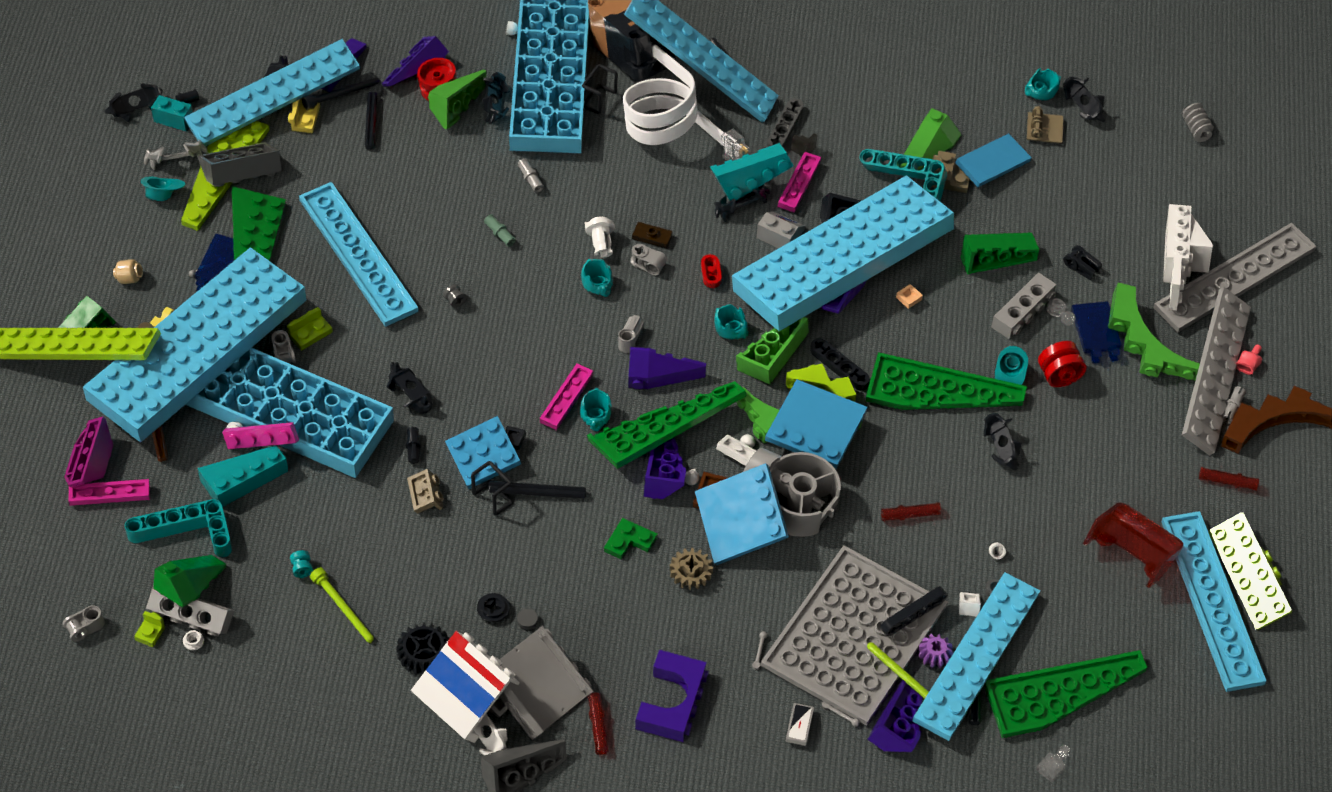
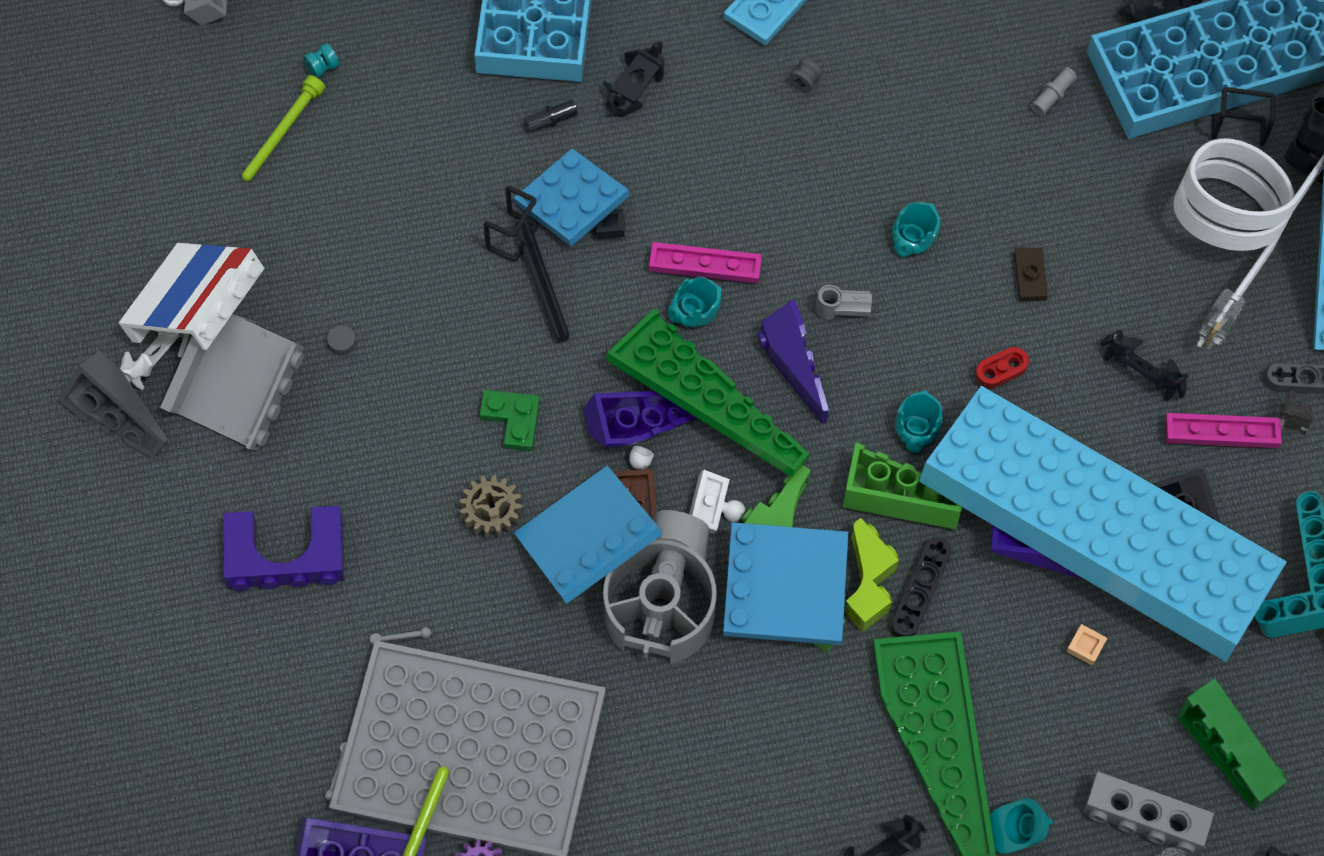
camera: 70 degrees right, 10 degrees up
(422, 641) = (243, 230): black gear -> none
(425, 491) = (485, 156): dark tan bracket -> none
(487, 602) = (331, 289): black gear -> none
(499, 230) = (941, 88): sand green pin -> none
(597, 716) = (183, 490): clear red pin -> none
(600, 230) = (999, 204): white piece -> none
(649, 261) = (980, 284): light grey piece -> none
(751, 171) = (1189, 353): teal wedge -> none
(778, 229) = (1123, 431): light grey slope -> none
(799, 724) = (298, 722): slope -> none
(902, 512) = (698, 753): clear red pin -> none
(913, 611) = (523, 812): black beam -> none

